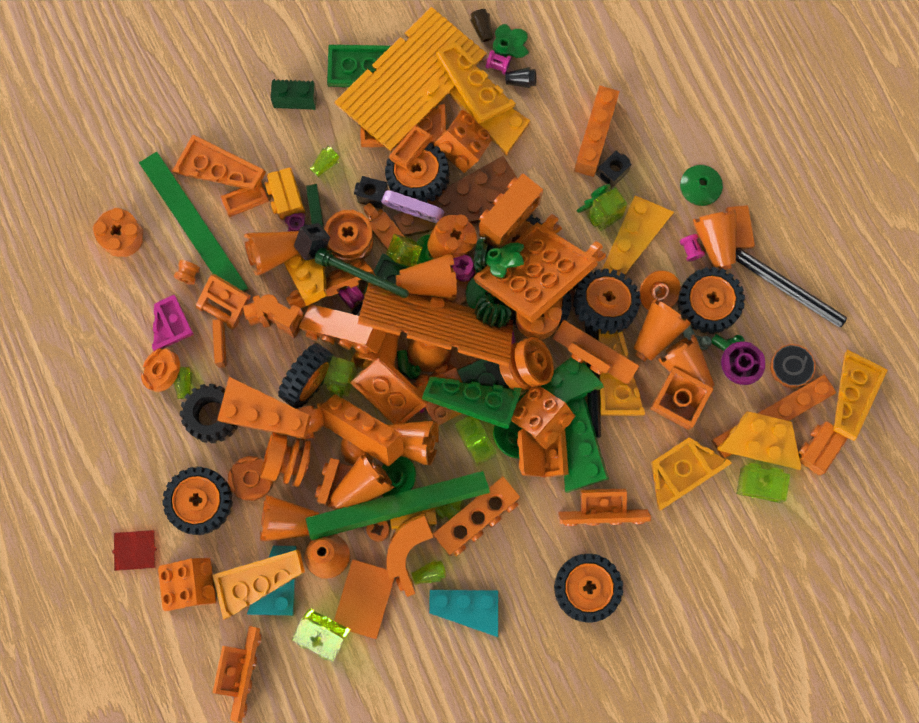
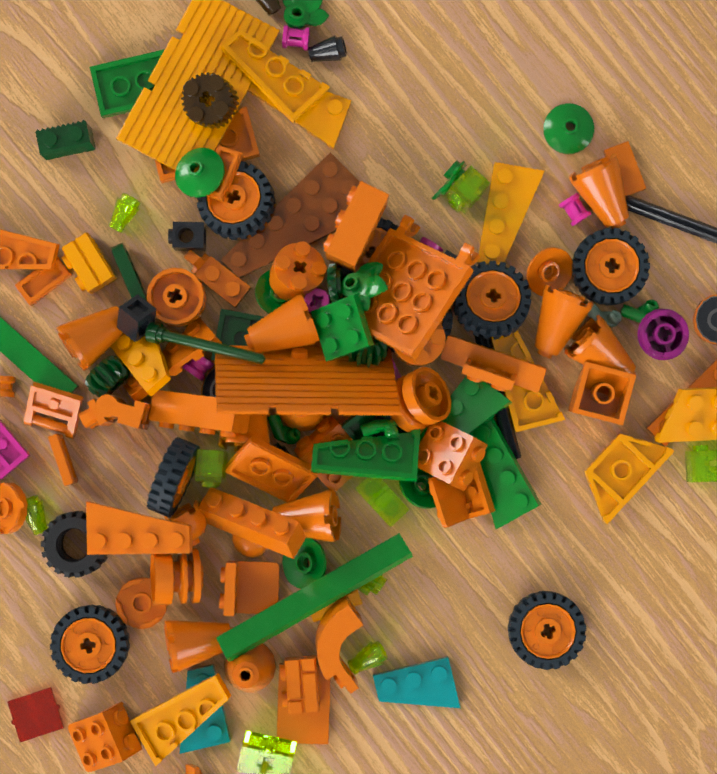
camera: 15 degrees left, 10 degrees up
(275, 282) = (107, 376): none -> dark green gear
(295, 218) = (104, 294): magenta plate -> none
(361, 484) = (268, 582): orange cone -> none
(367, 578) = (301, 684): none -> orange brick
(380, 533) = (305, 627): orange wheel -> none
(394, 142) = (208, 176): none -> green dish
(404, 250) = (245, 300): clear neon green brick -> none
(412, 206) = (241, 244): lavender beam -> none
(413, 78) = (196, 95): none -> dark brown brick
(445, 534) = (390, 621): orange brick -> none
(464, 141) = (281, 148): orange bracket -> none
(478, 287) = (342, 327): none -> green plate
(487, 377) = (380, 425): none -> green arm
(596, 131) = (432, 95): orange brick -> none
(604, 507) = (544, 537): orange bracket -> none
(610, 176) = (459, 146): black brick -> none

